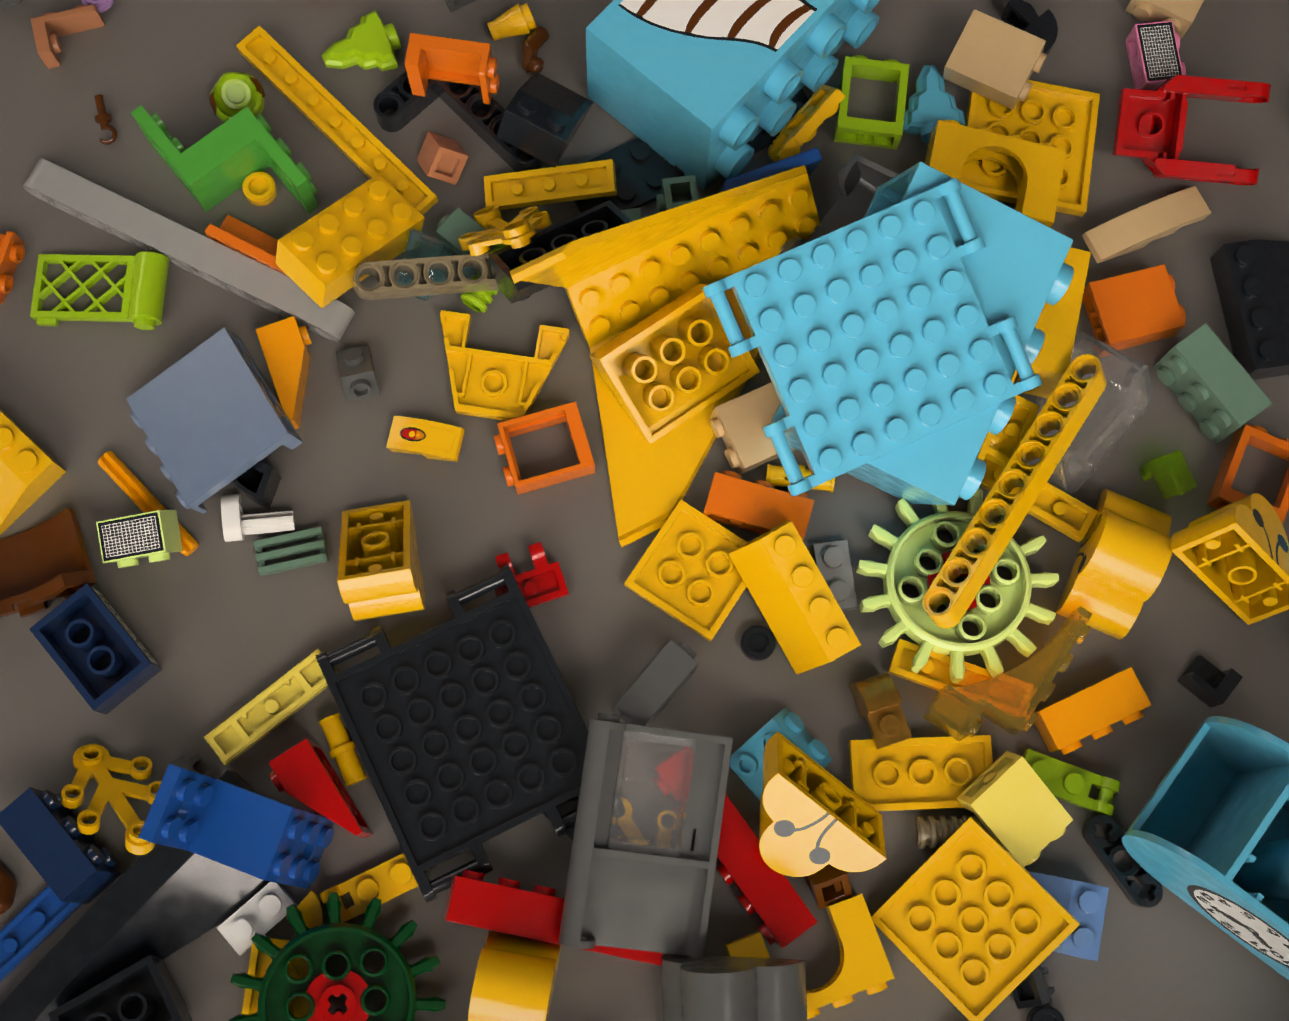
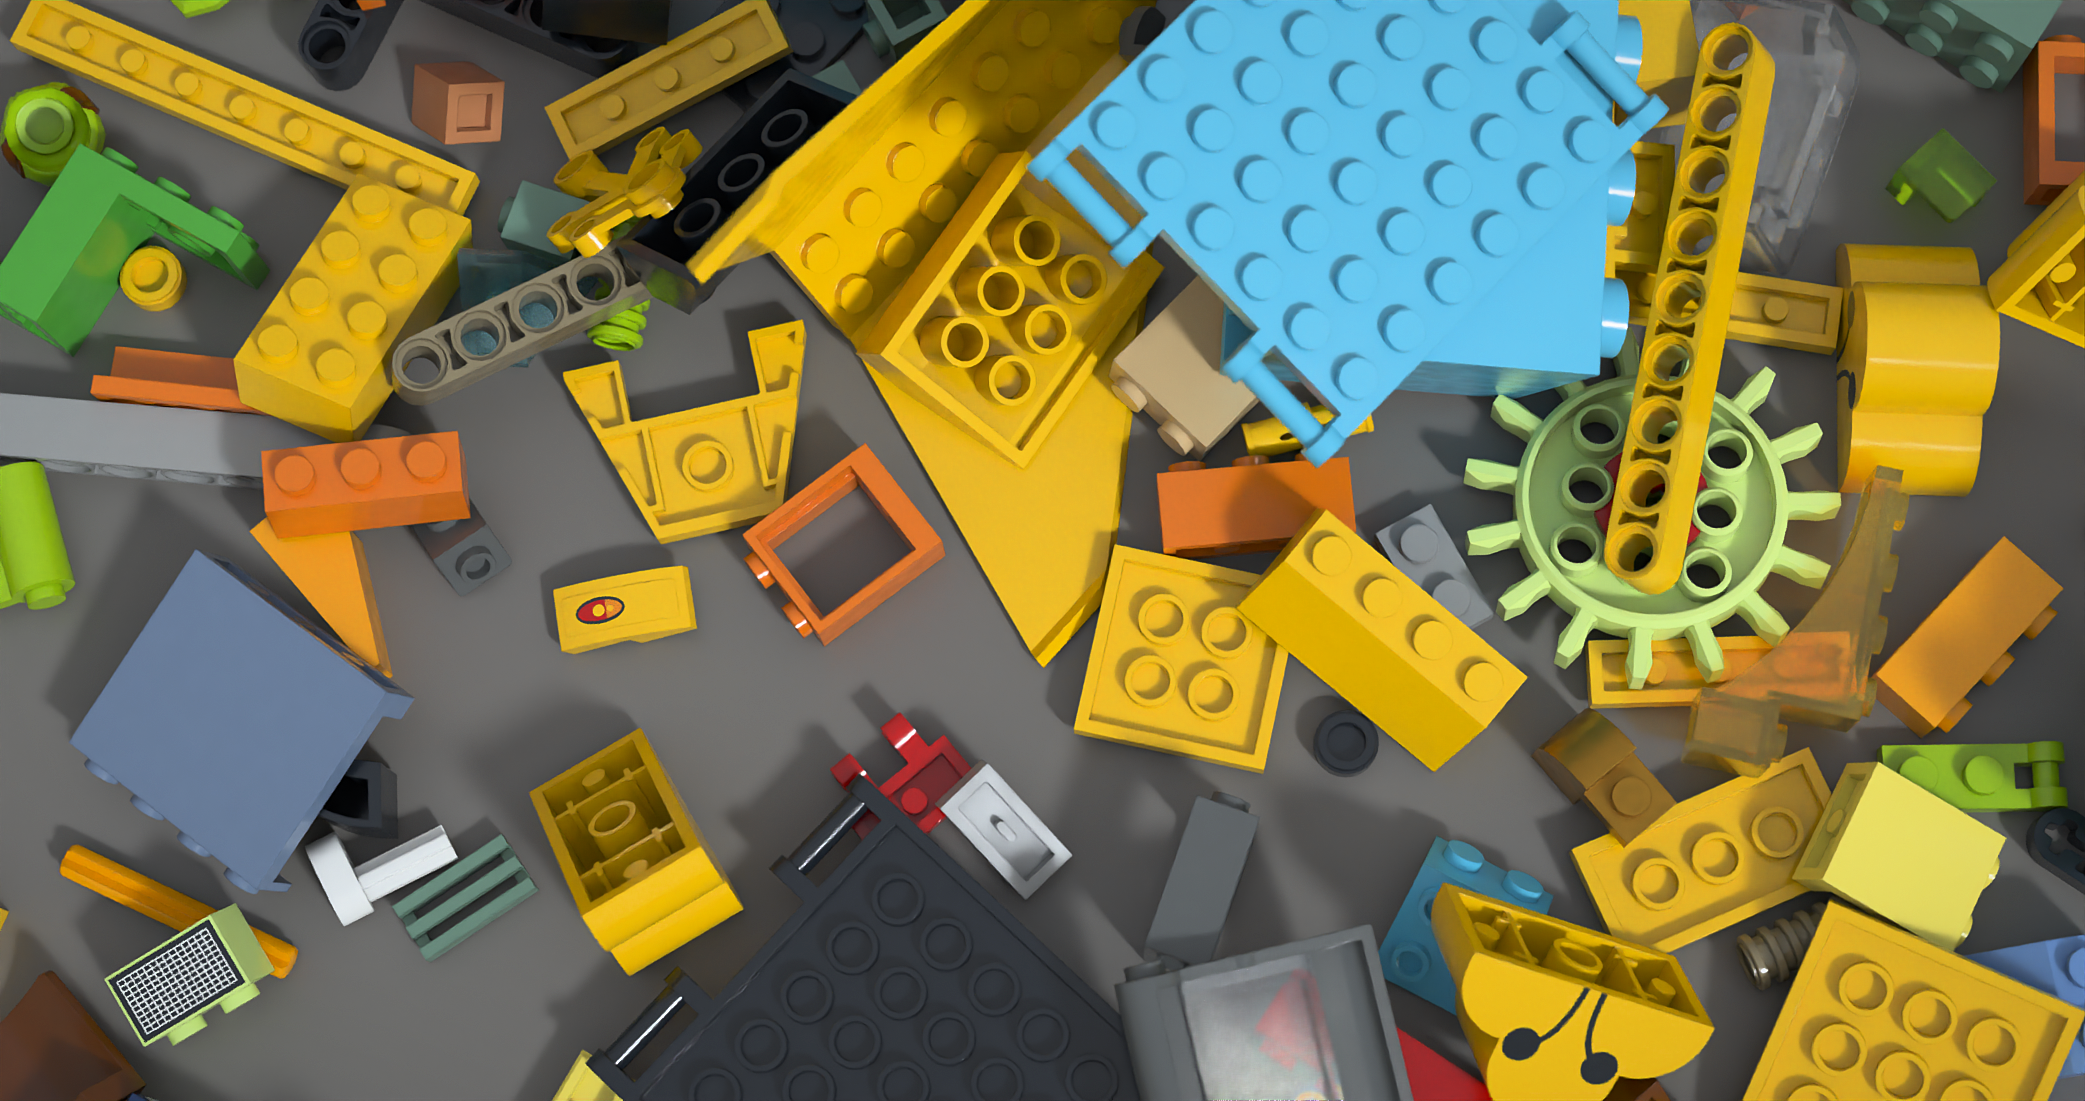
camera: 10 degrees left, 0 degrees up
(320, 327) = (365, 484): none -> orange brick
(569, 619) = (1003, 829): none -> plate

